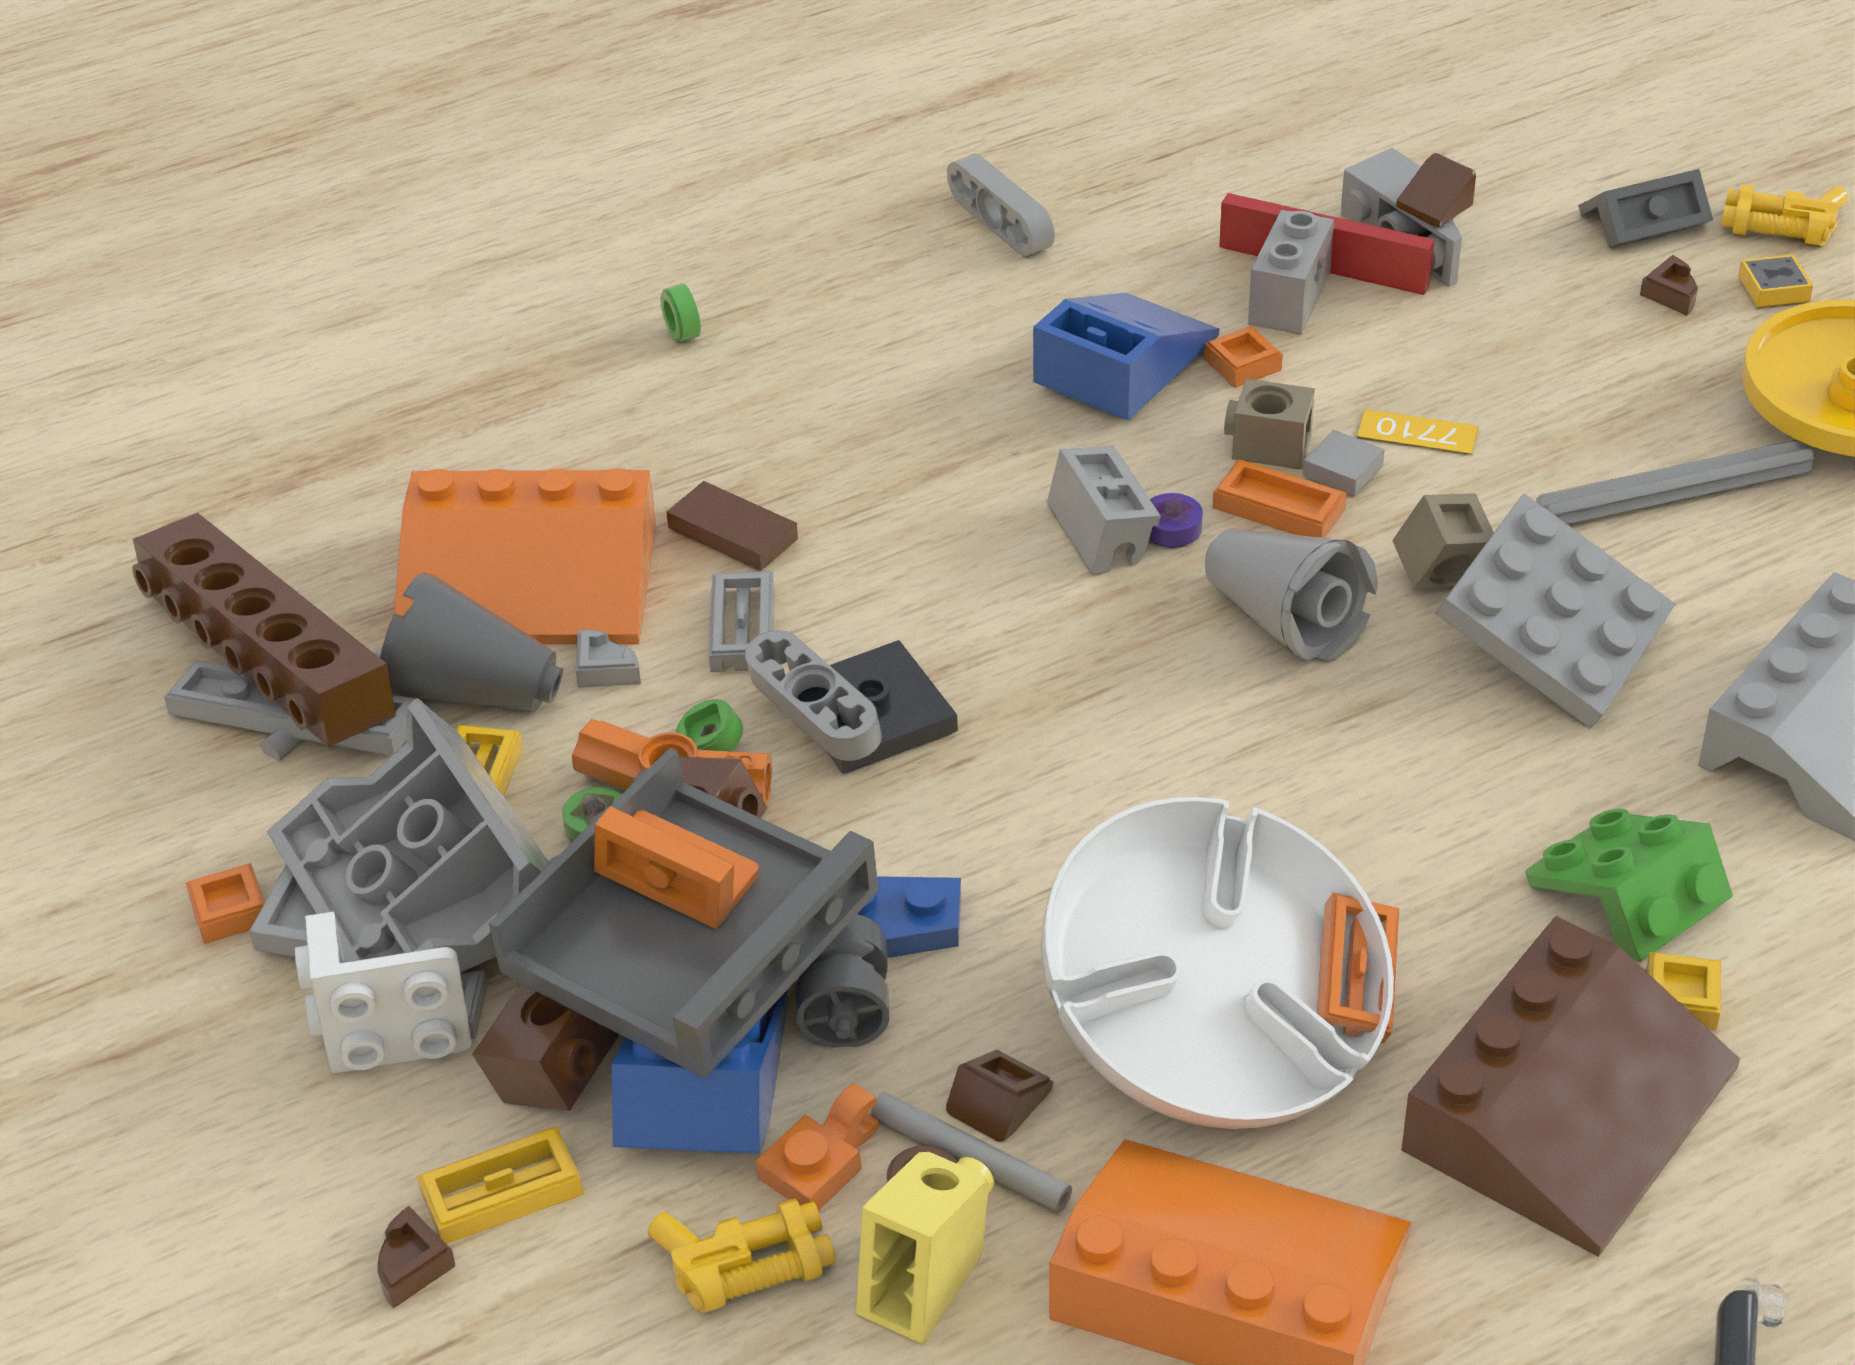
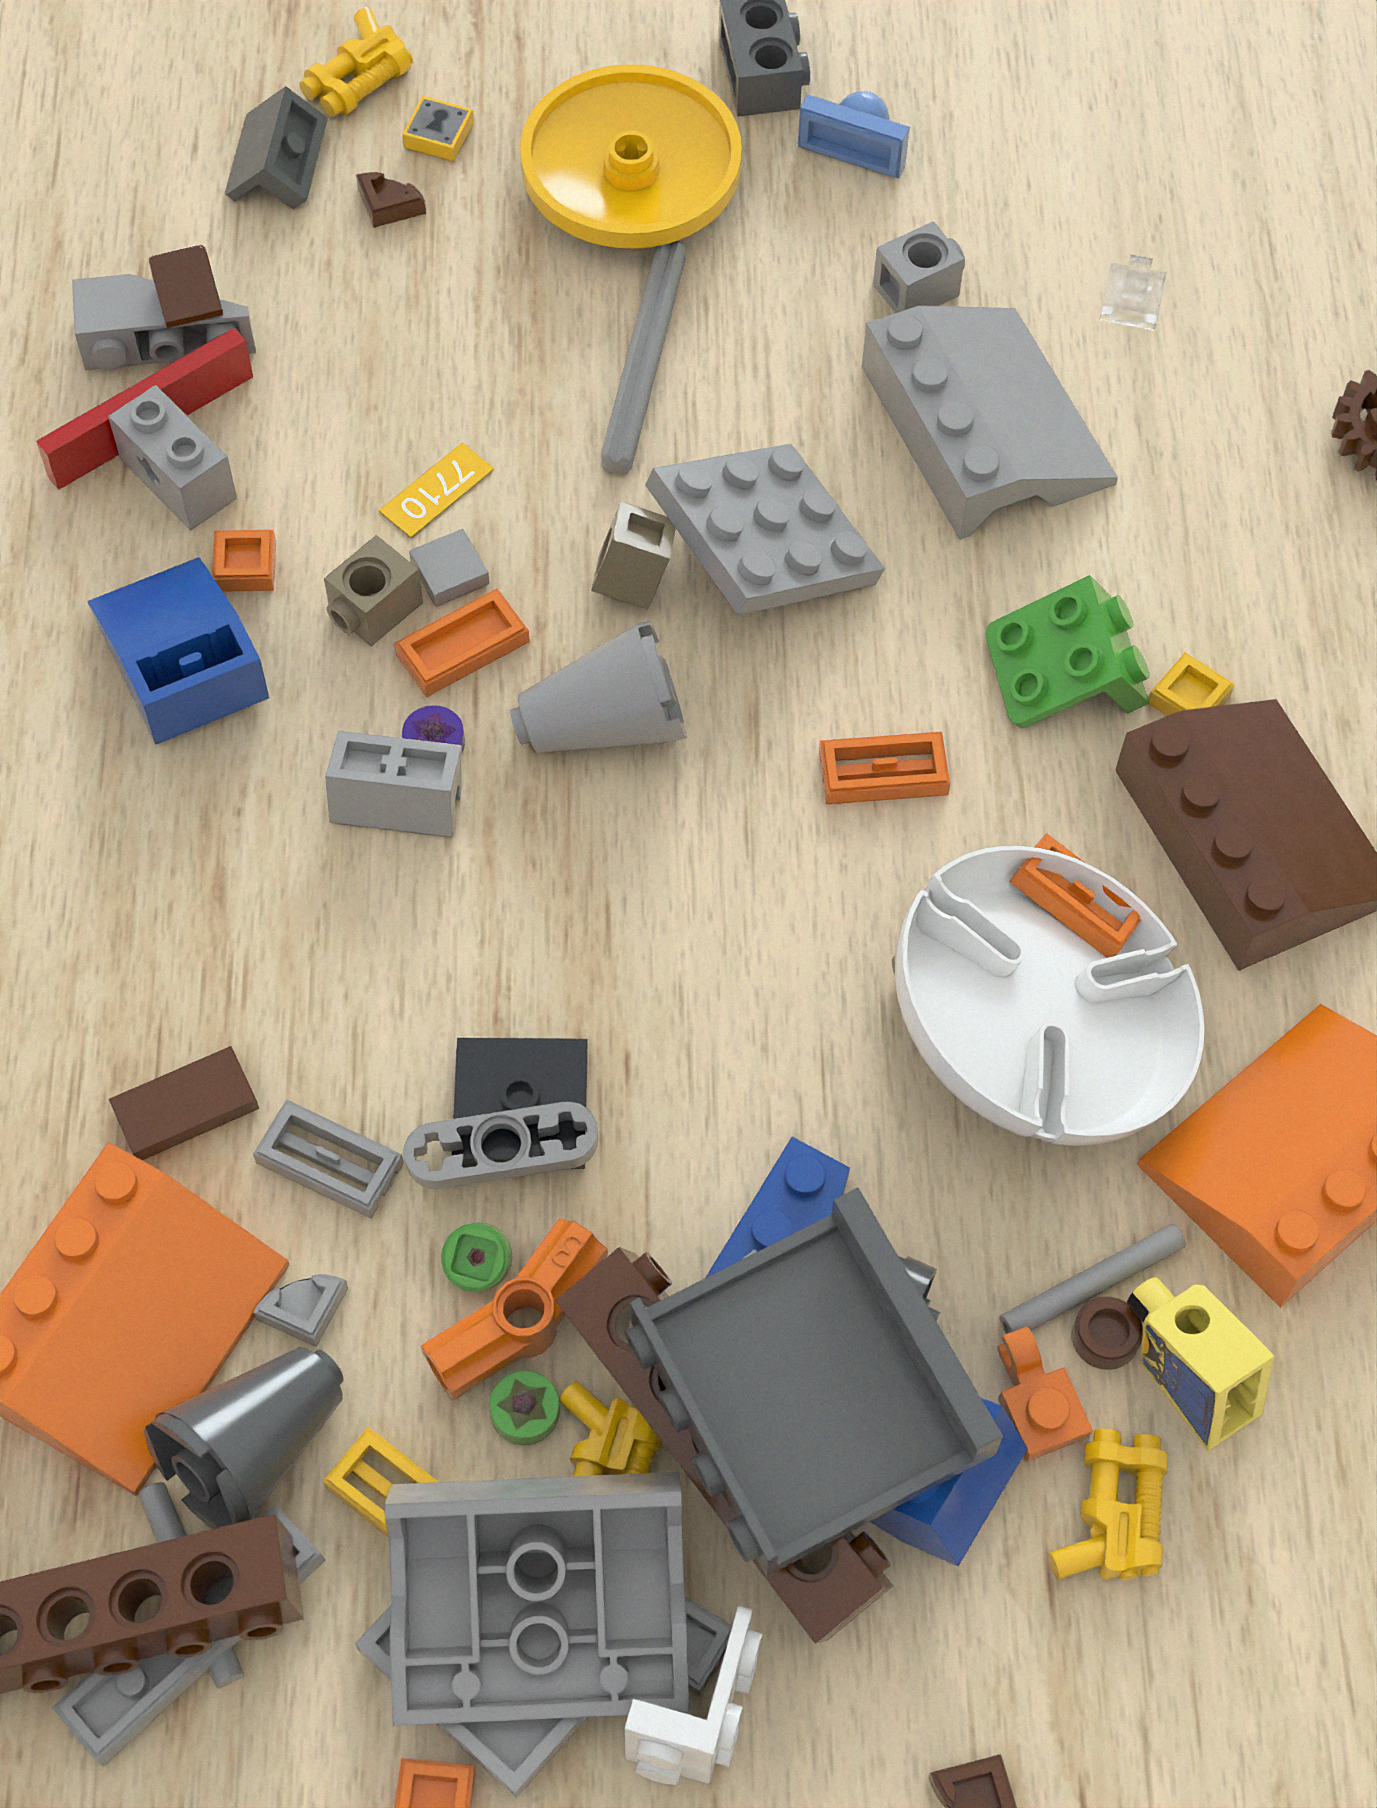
camera: 65 degrees left, 20 degrees up
(504, 1193) = (932, 1745): yellow tile -> none
(671, 865) = (760, 1363): orange panel -> none
(996, 1094) = (1040, 1229): reddish brown slope -> none
(1384, 806) = (885, 776): none -> orange tile

